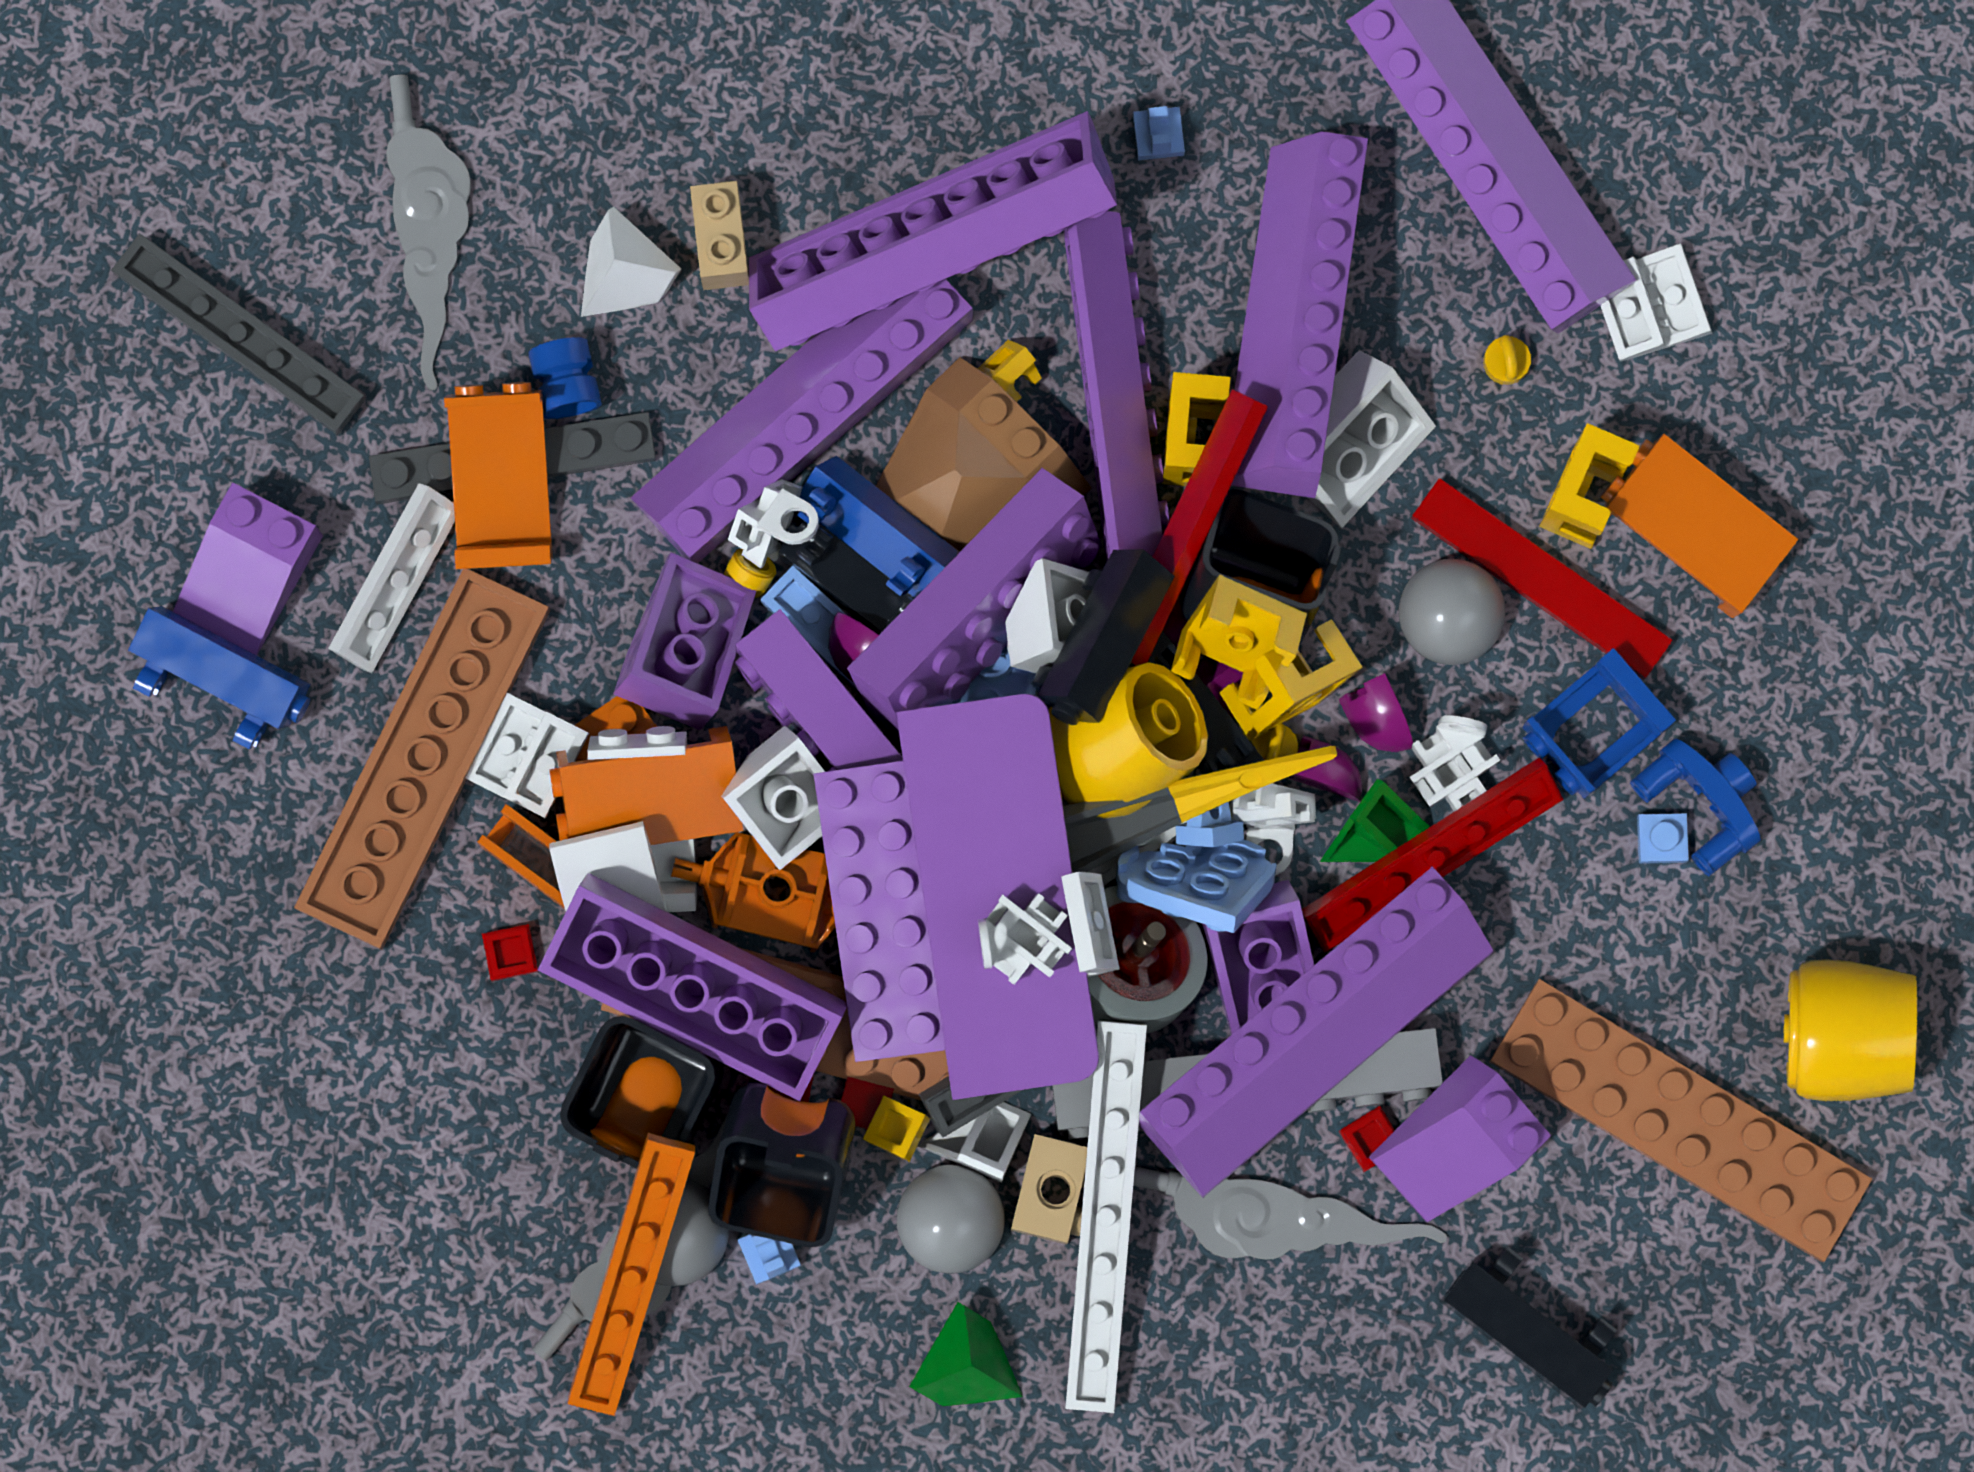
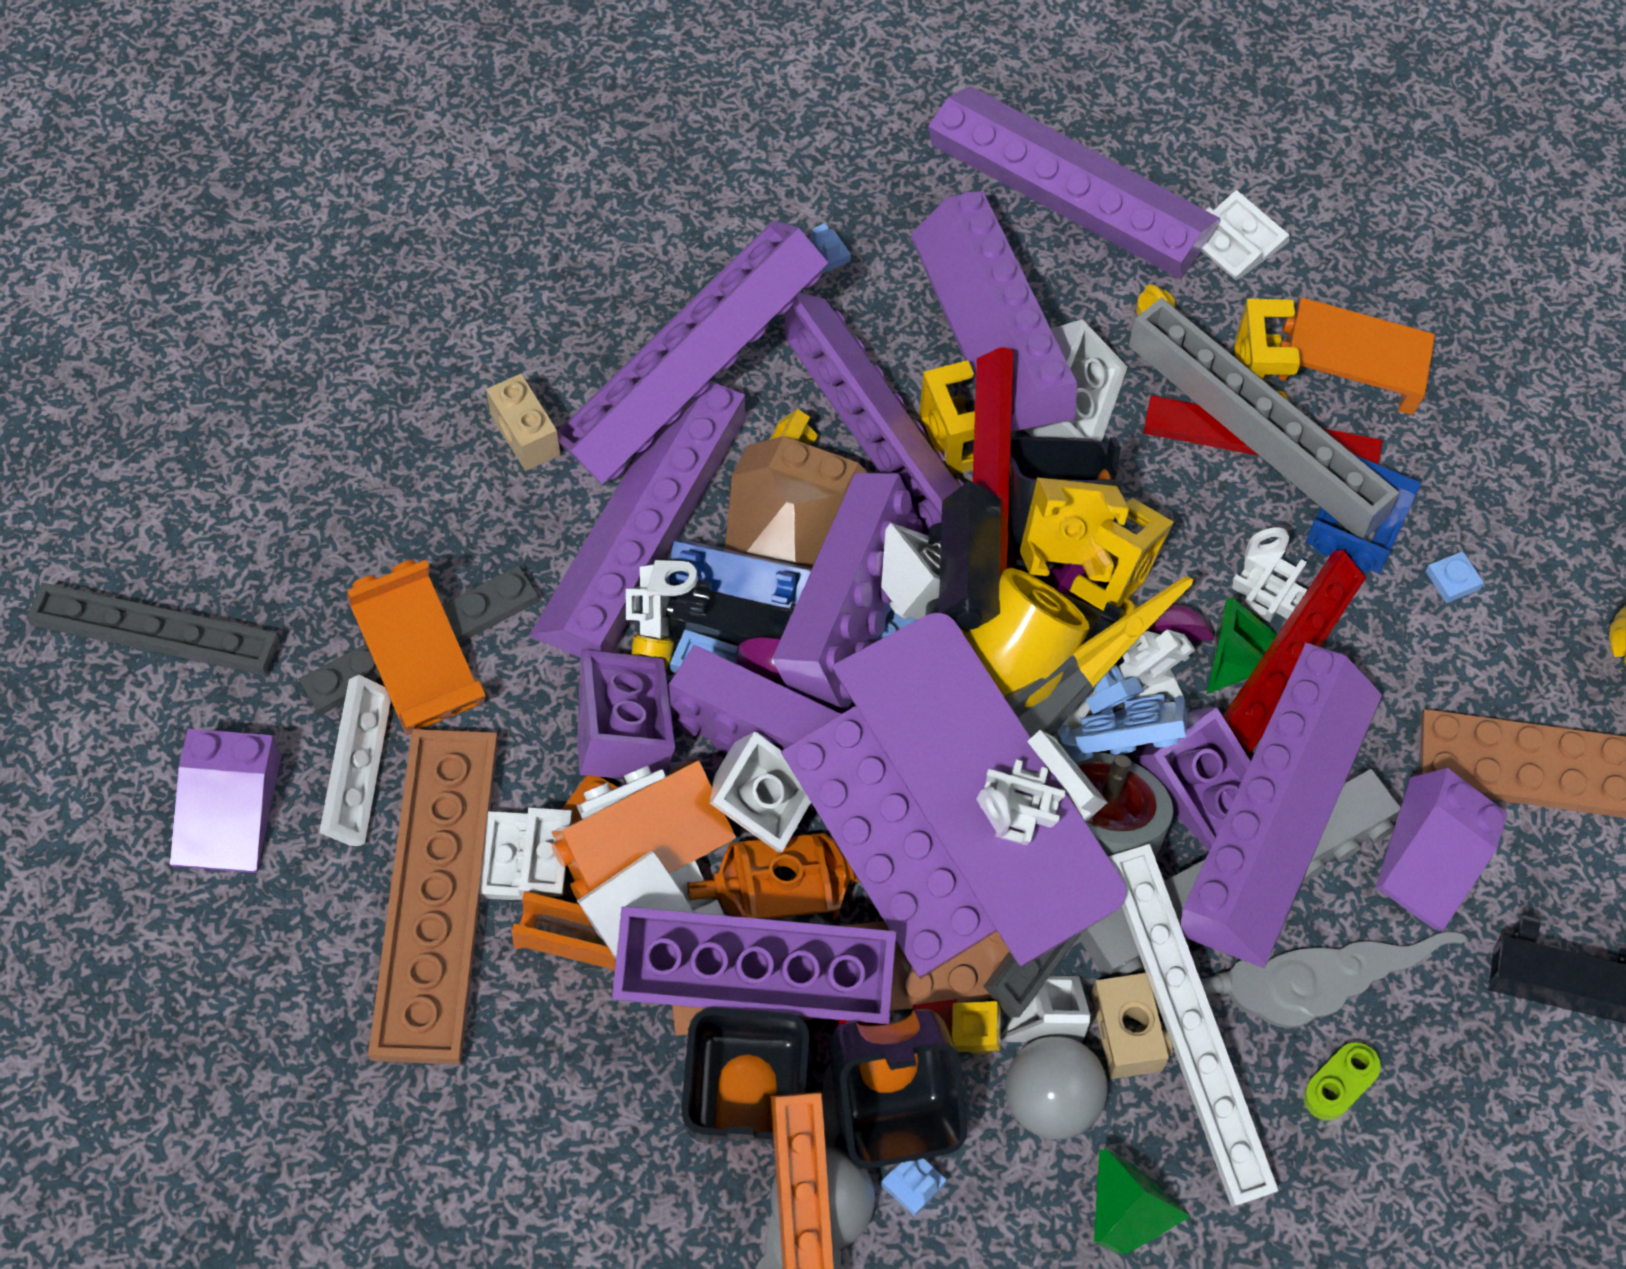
camera: 25 degrees left, 20 degrees down
(219, 668) = (228, 884): blue brick -> none
(428, 216) = (281, 495): light grey piece -> none
(510, 952) = (575, 1022): red tile -> none
(563, 370) = (449, 565): blue wheel -> none
(624, 268) = (456, 473): white slope -> none
(1238, 1331) = (1343, 1080): none -> lime plate
(1366, 1136) = (1359, 883): red tile -> none
(1378, 716) = (1200, 563): magenta brick -> none
(1451, 611) = (1210, 479): light grey piece -> none
(1535, 569) = (1263, 419): none -> light grey brick
(1721, 784) = (1477, 522): blue connector -> none

